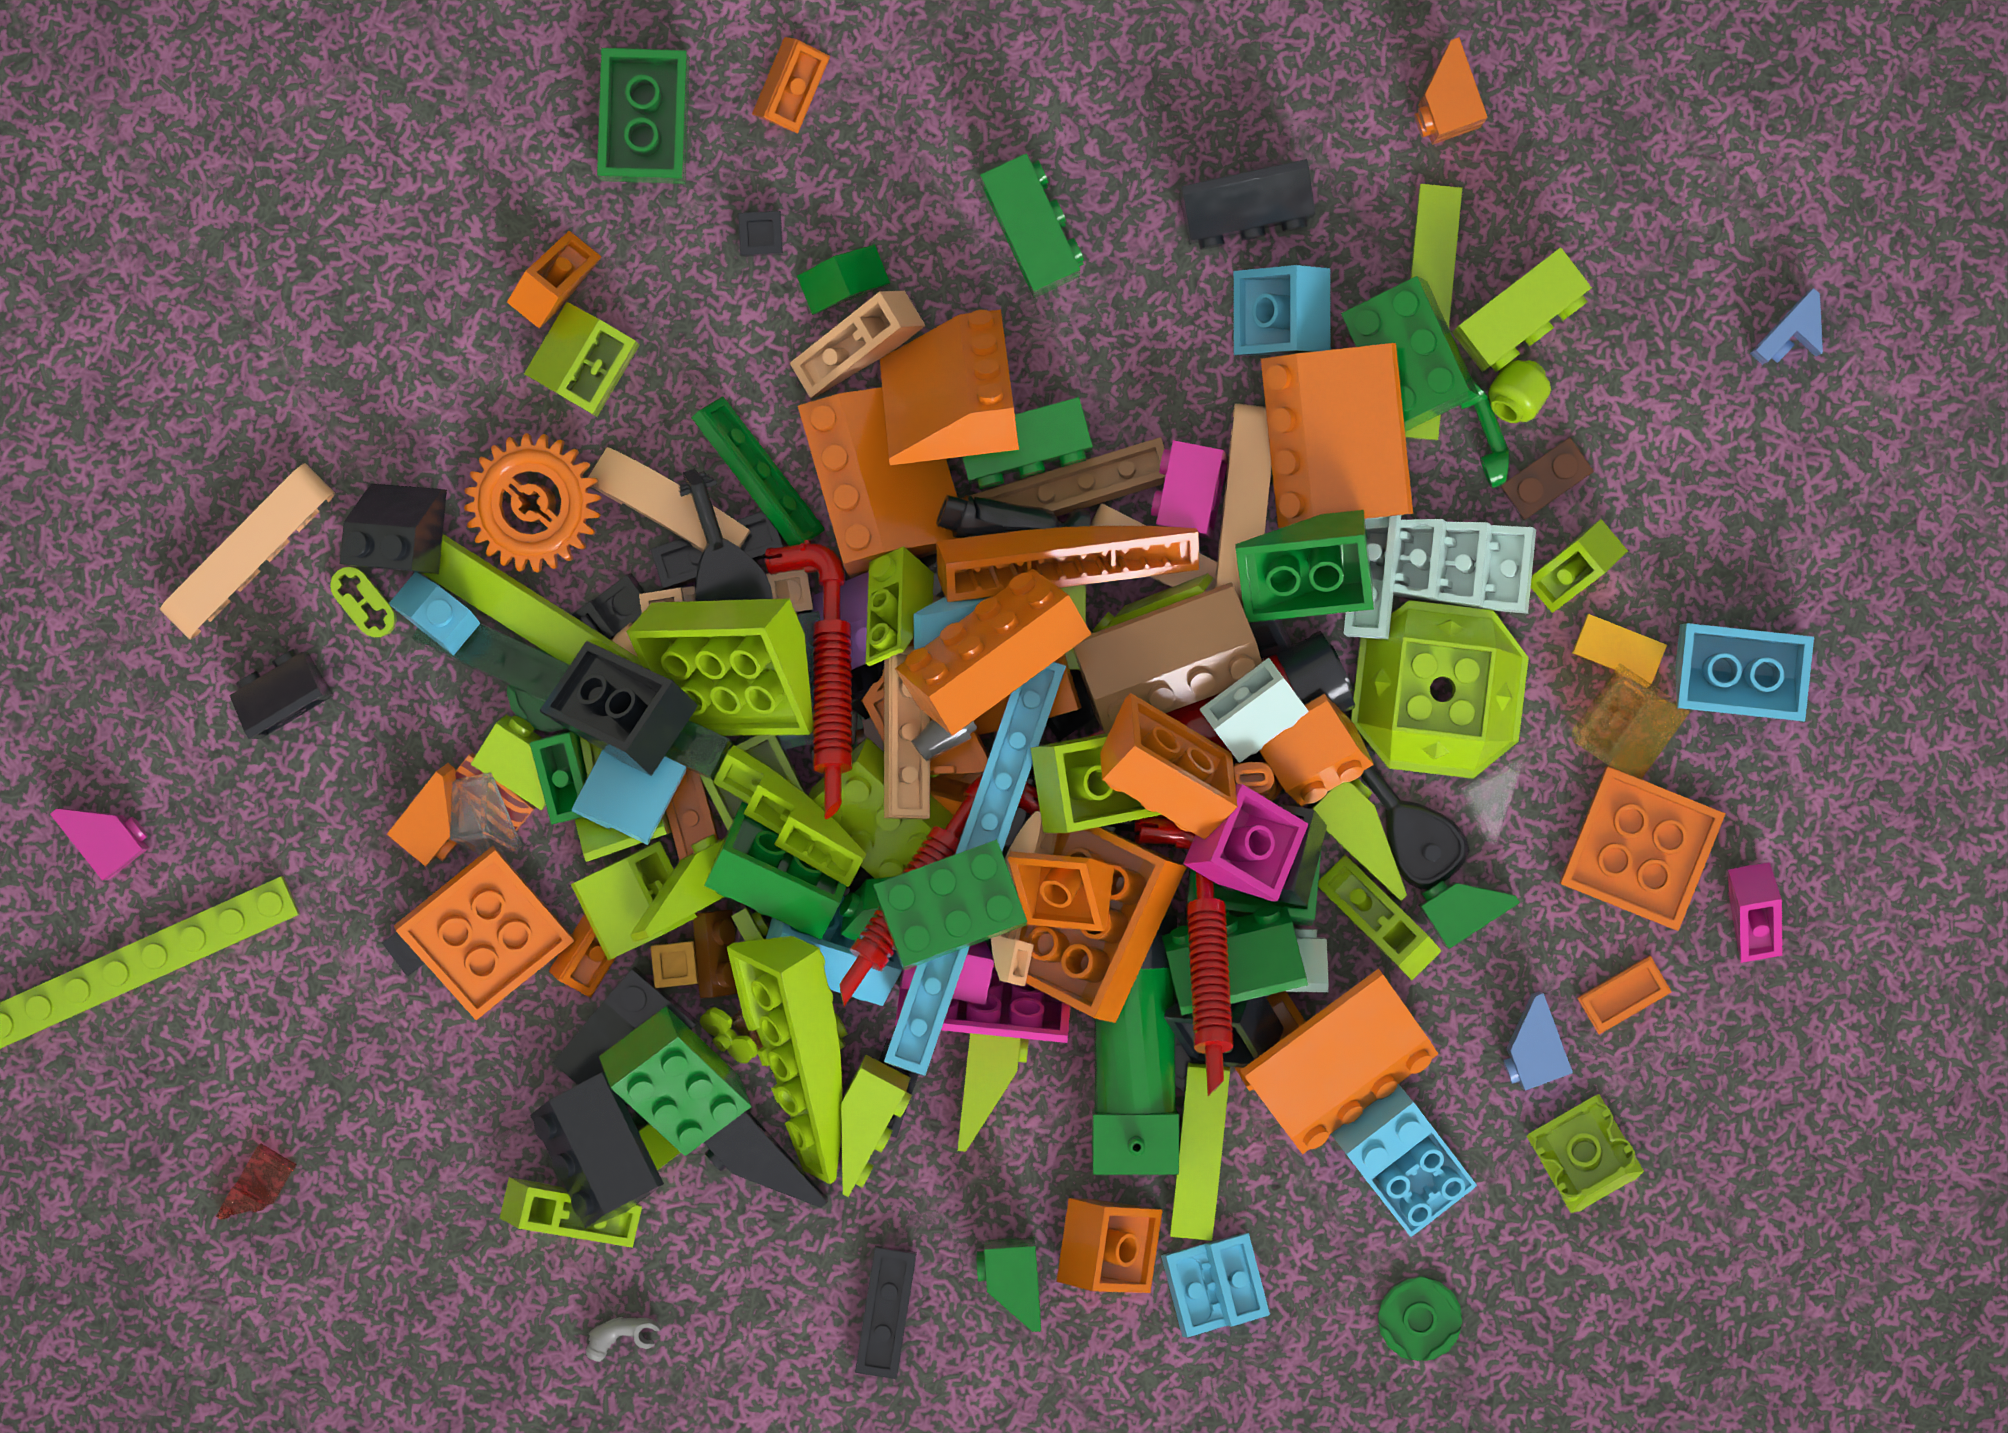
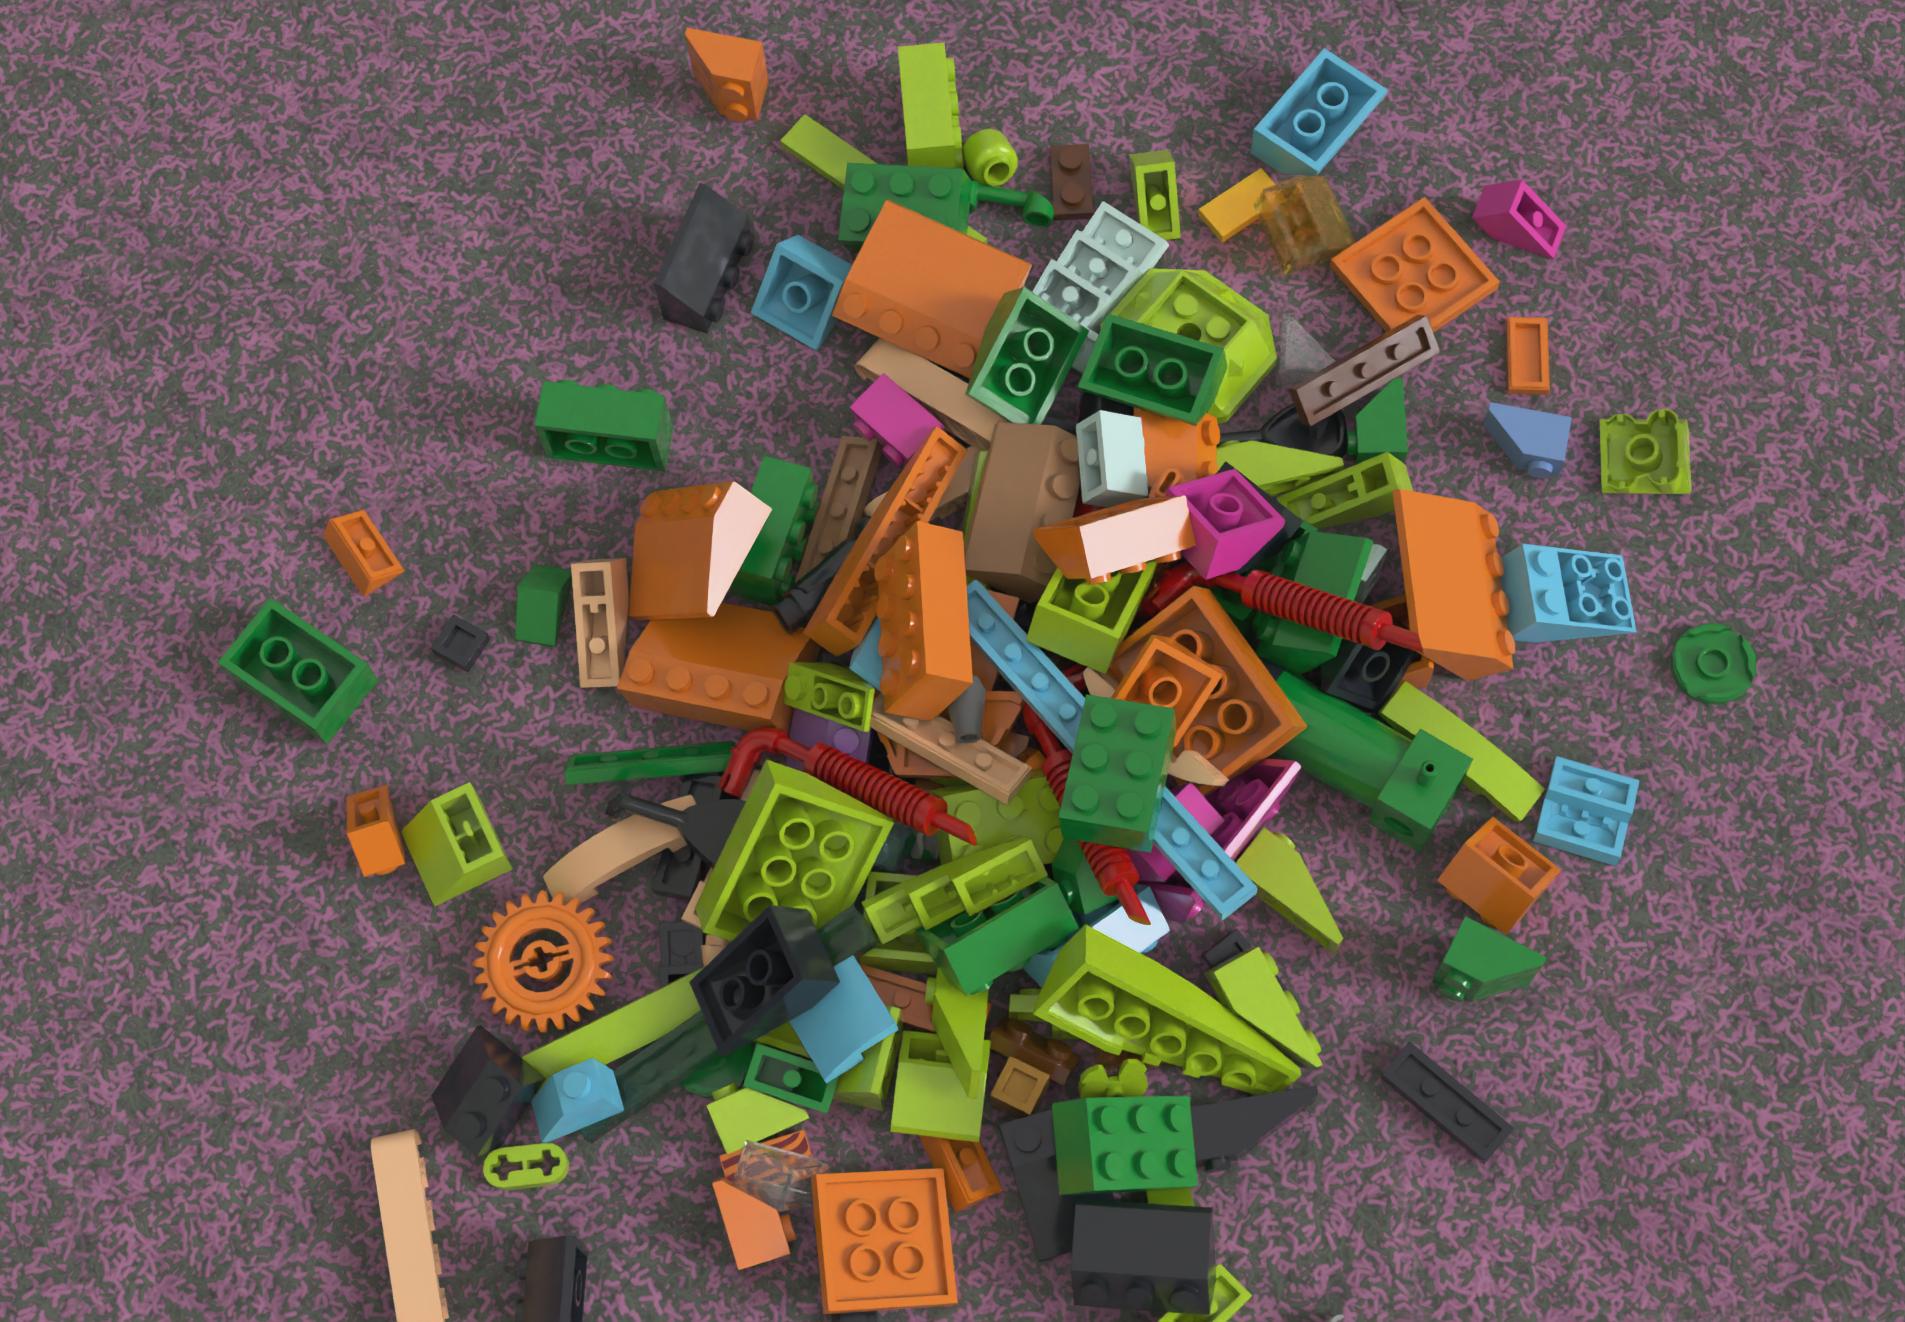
camera: 55 degrees left, 20 degrees down
(1362, 692) = (1154, 370): none -> green slope
(1503, 865) = (1364, 370): none -> plate

